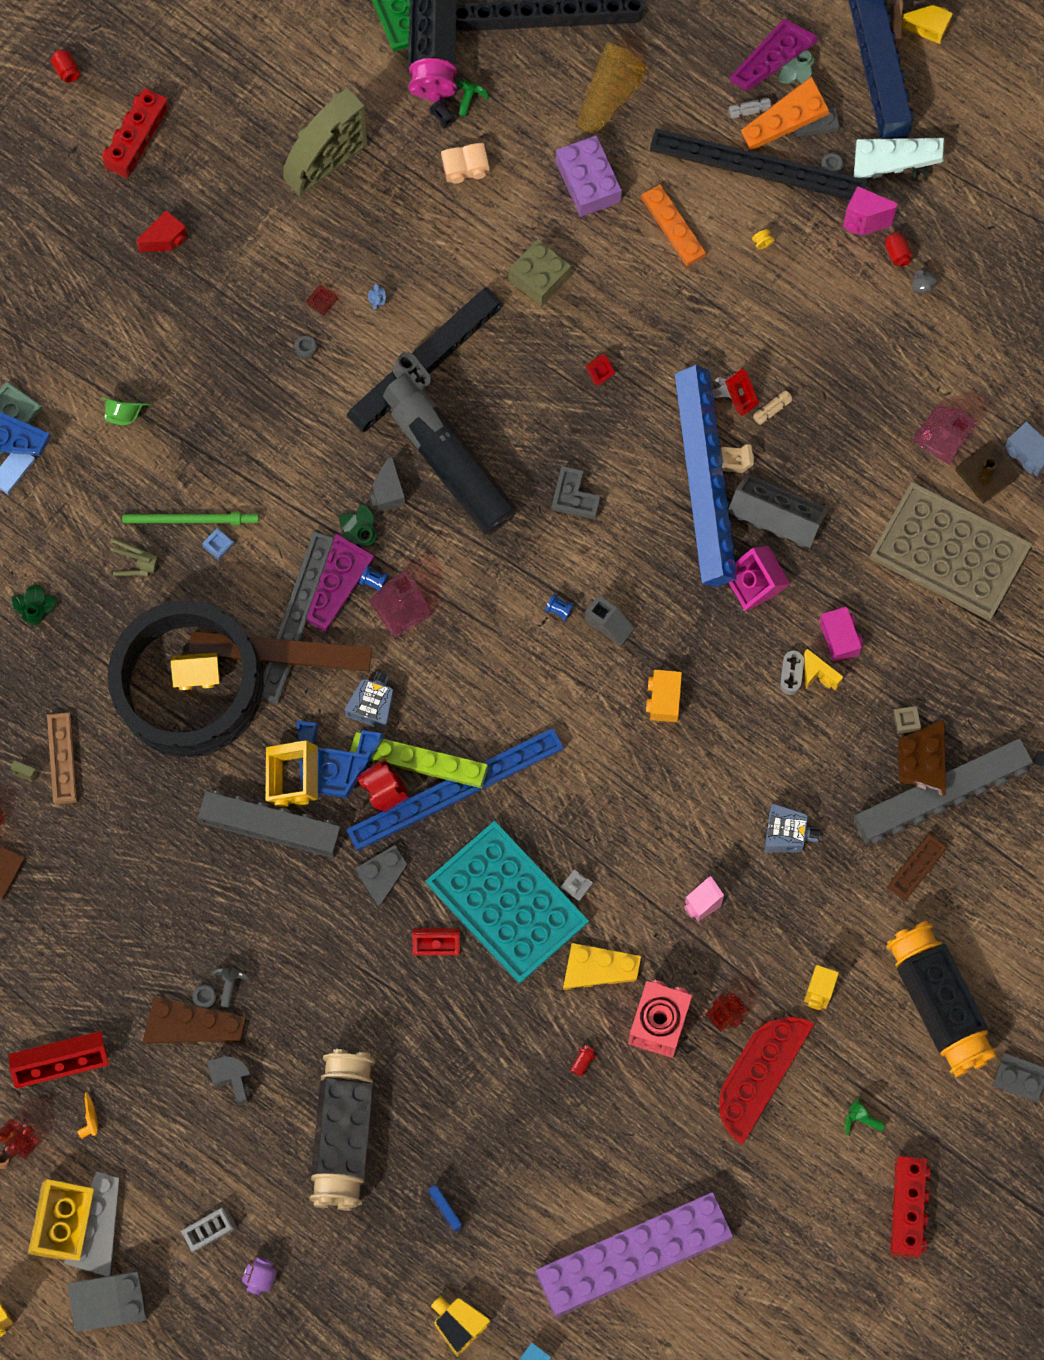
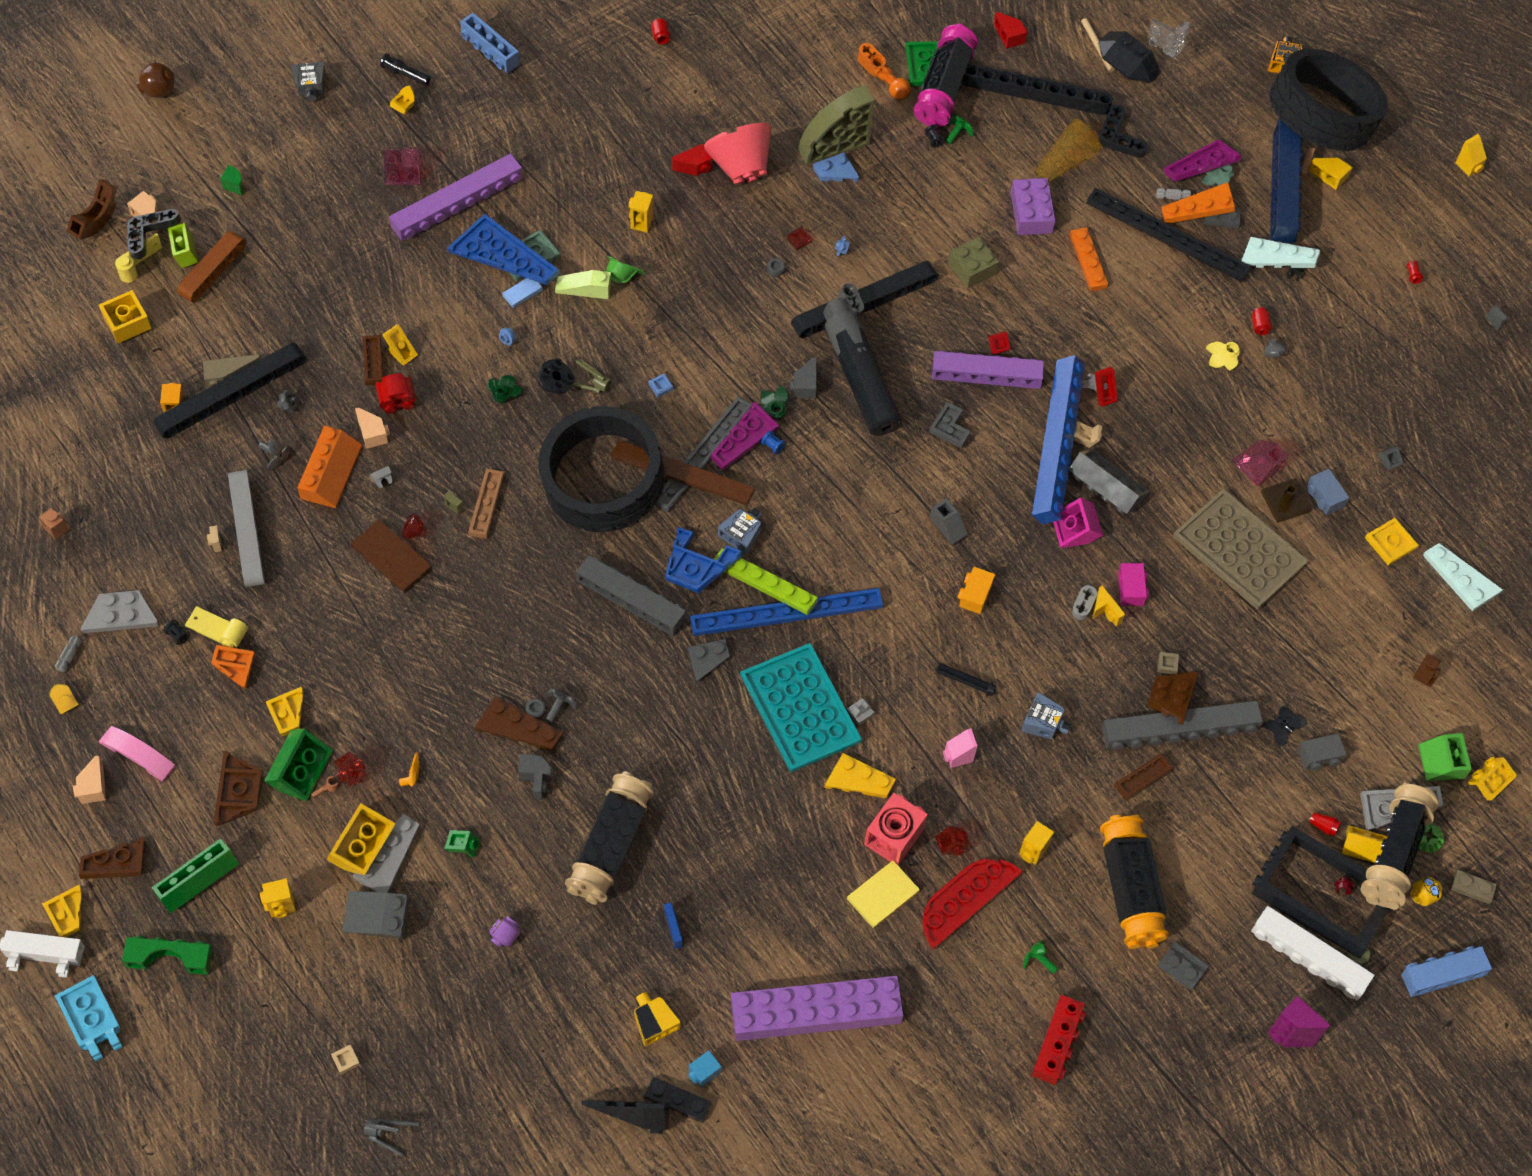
camera: 15 degrees right, 10 degrees down
(14, 535) = (507, 336): none -> medium blue plate
(58, 1059) = (403, 719): red brick -> none
(84, 439) = (586, 284): none -> yellowish green slope
(92, 573) = (556, 376): none -> black plate
(122, 324) = (641, 211): none -> yellow brick
(135, 132) = (697, 88): red brick -> none
(176, 1185) = (462, 842): none -> green bracket
(195, 670) = (611, 467): yellow brick -> none
(223, 213) = (743, 152): none -> coral cone
(228, 1220) = (476, 878): light grey slope -> none
(234, 518) = (679, 370): bright green bar -> none
(274, 773) = (660, 545): yellow window -> none
(337, 192) = (835, 169): none -> medium blue wing
(380, 59) = (869, 57): none -> orange beam
(384, 786) = (730, 591): red brick -> none
(400, 604) = (788, 464): clear pink slope -> none
(436, 941) = (733, 721): red slope -> none
(465, 163) = (940, 173): light nougat brick -> none
(559, 607) = (912, 502): blue bush -> none
(583, 1060) = (822, 845): red pin -> none
(596, 409) = (987, 369): none -> medium lavender brick
(659, 50) = (1115, 137): none -> black beam
(667, 1097) = (883, 894): none -> light yellow tile
(685, 809) = (988, 688): none -> black axle
(763, 239) = (1156, 286): yellow bush -> none
(772, 407) = (1127, 406): tan axle -> none
(832, 162) = (1227, 247): dark grey tile -> none
(864, 309) = (1222, 356): none -> light yellow plate
(868, 212) = (1245, 287): dark pink slope -> none

